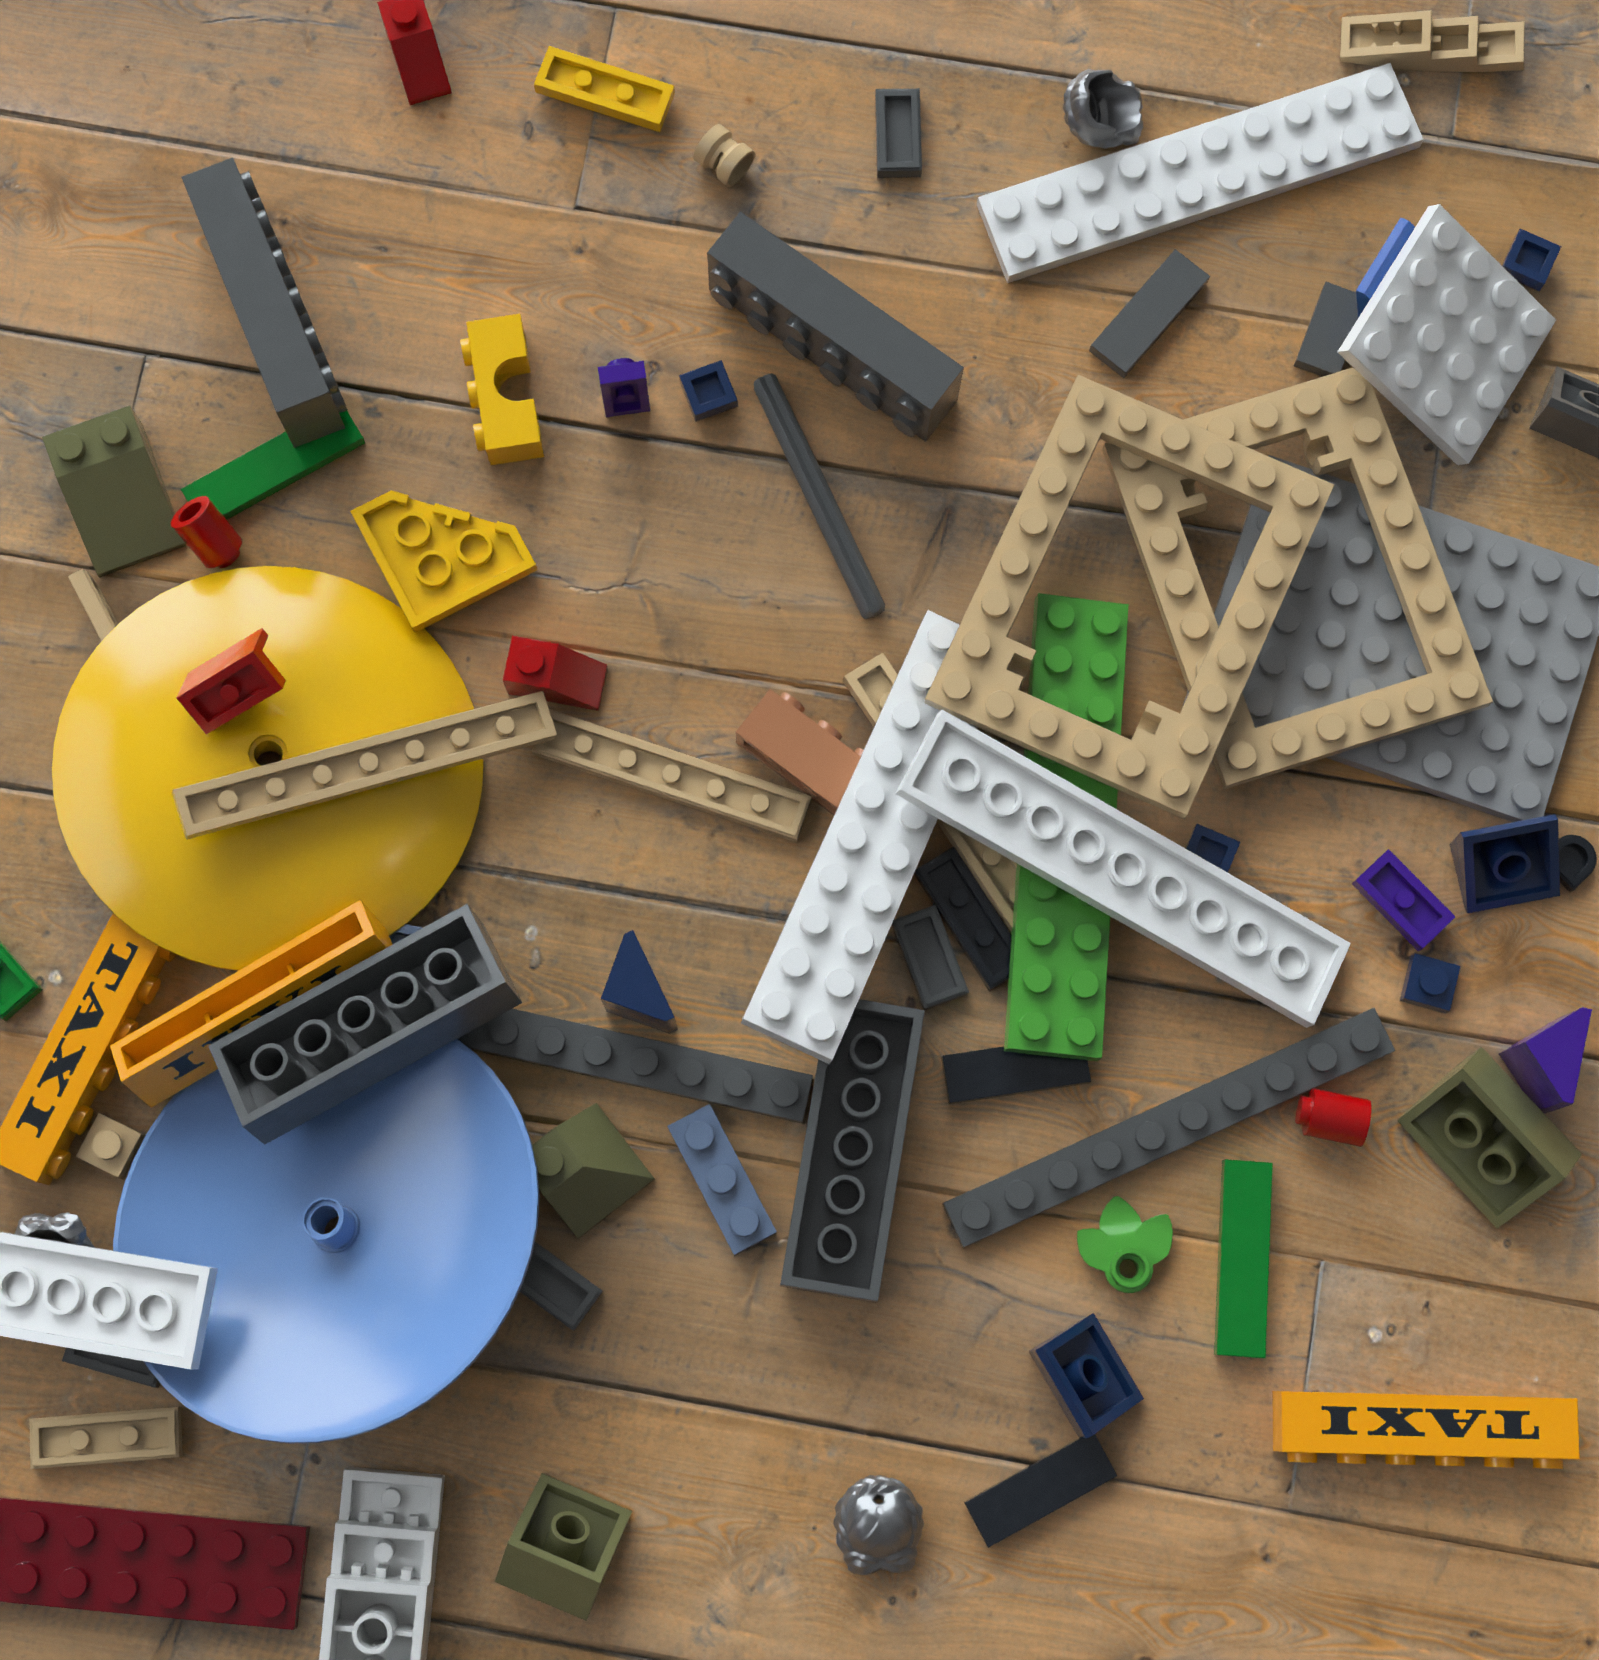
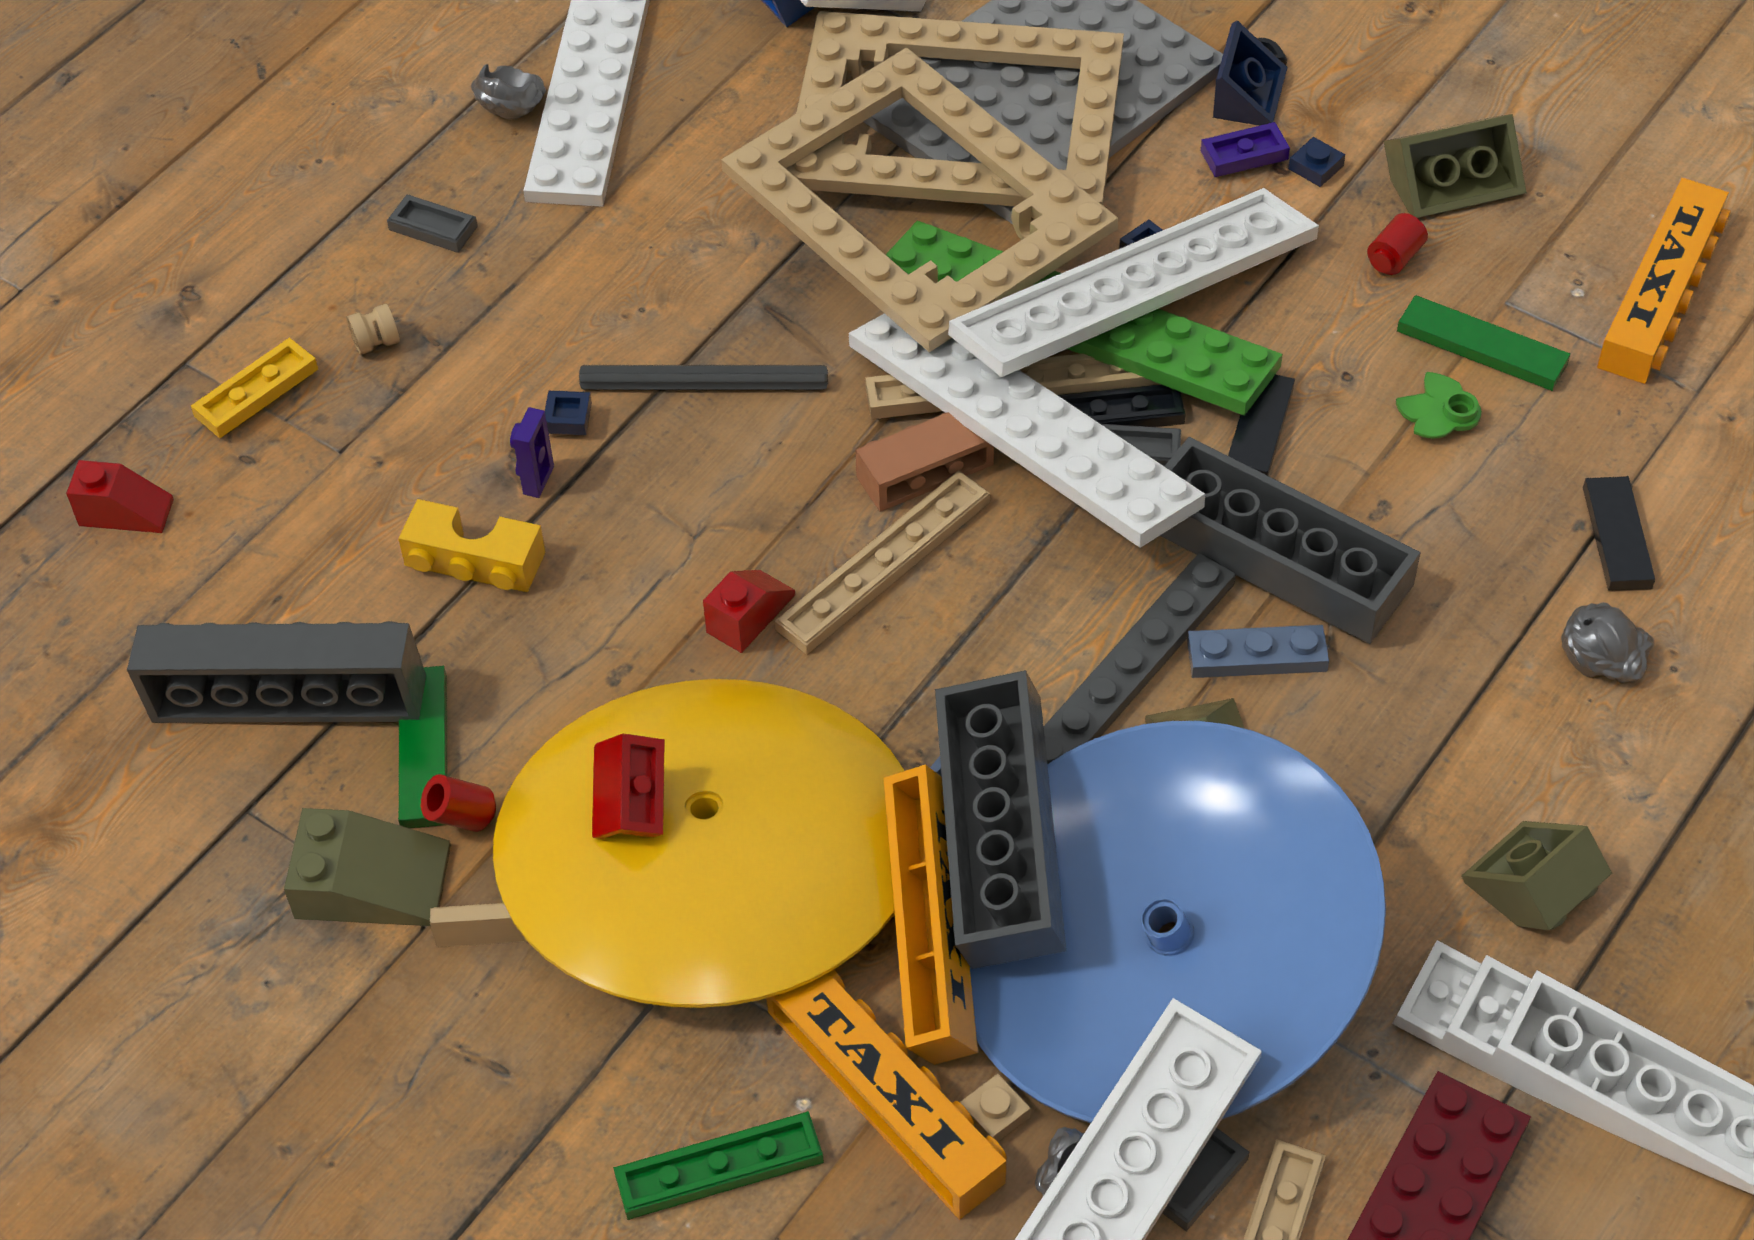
camera: 60 degrees left, 25 degrees down
(363, 765) = (758, 740): tan plate -> none
(439, 555) = (587, 649): yellow plate -> none
(634, 990) = (1065, 627): dark blue slope -> none
(833, 327) = (574, 301): dark grey brick -> none
(1086, 1376) = (1540, 473): dark blue slope -> none
(1149, 313) = (688, 129): dark grey tile -> none
(1167, 1127) = (1355, 358): dark grey plate -> none
(1327, 330) = (772, 36): dark grey tile -> none
(1550, 1060) = (1415, 96): dark purple slope -> none

